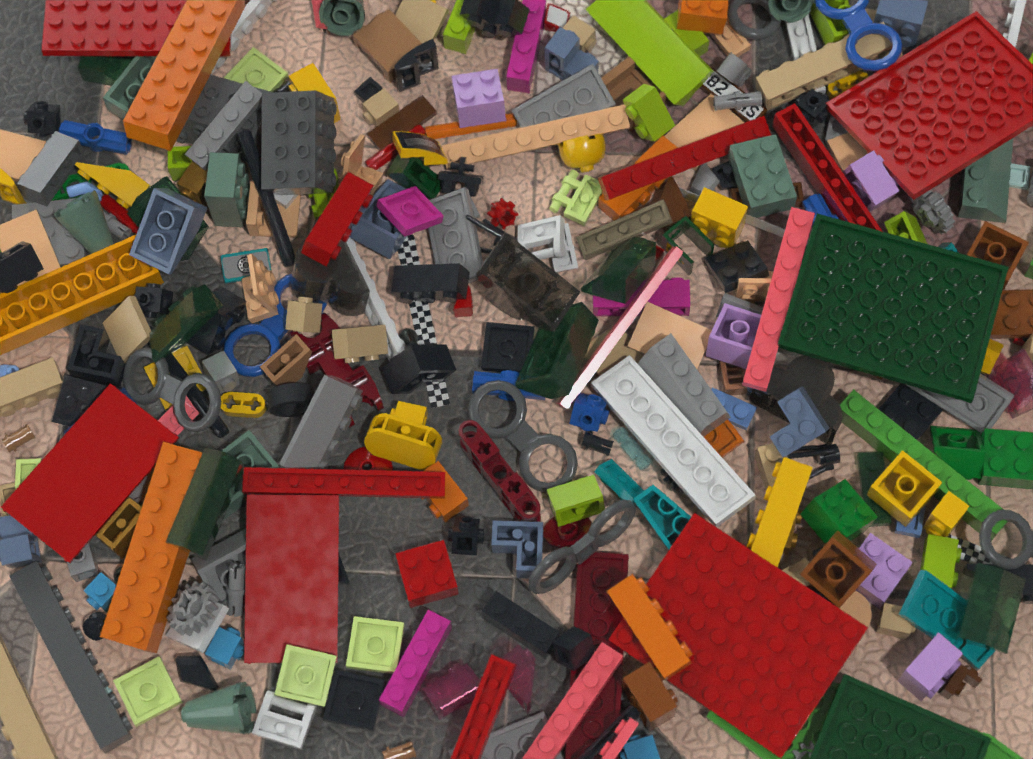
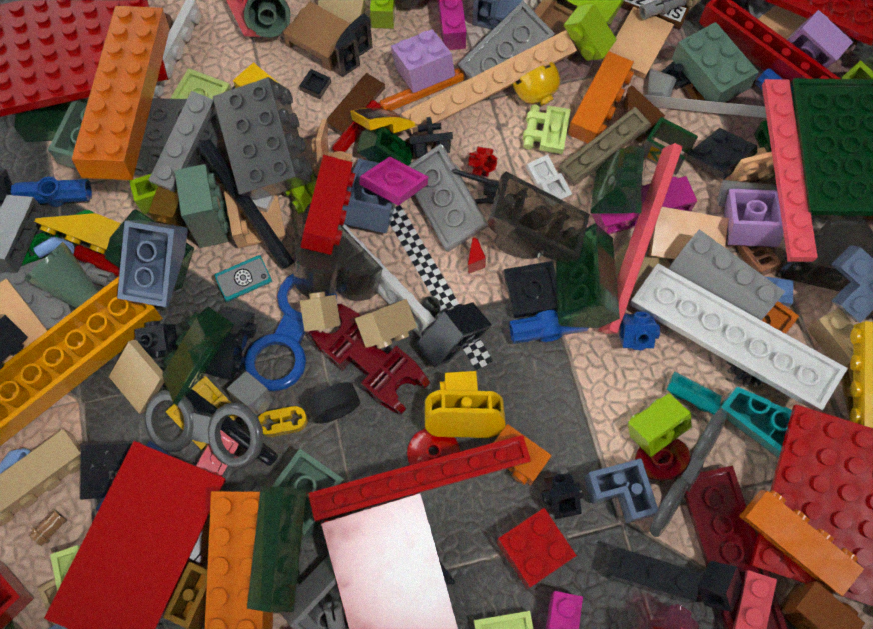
camera: 20 degrees left, 0 degrees up
(91, 360) = (106, 420): black brick -> none
(259, 291) = (265, 300): light nougat bracket -> none
(288, 362) = (318, 364): medium nougat slope -> none
(322, 424) = (377, 422): light grey slope -> none
(379, 108) = (329, 94): tan brick -> none
(430, 282) = (437, 245): black brick -> none
(487, 460) = (559, 409): dark red piece -> none
(523, 435) = (582, 373): dark grey bar -> none
(542, 233) = (532, 167): white plate -> none
(595, 443) = (654, 360): black pin -> none
(632, 448) = (690, 355): clear light blue axle -> none
(681, 158) = (633, 68): red plate -> none
(719, 217) = (693, 109): yellow brick -> none

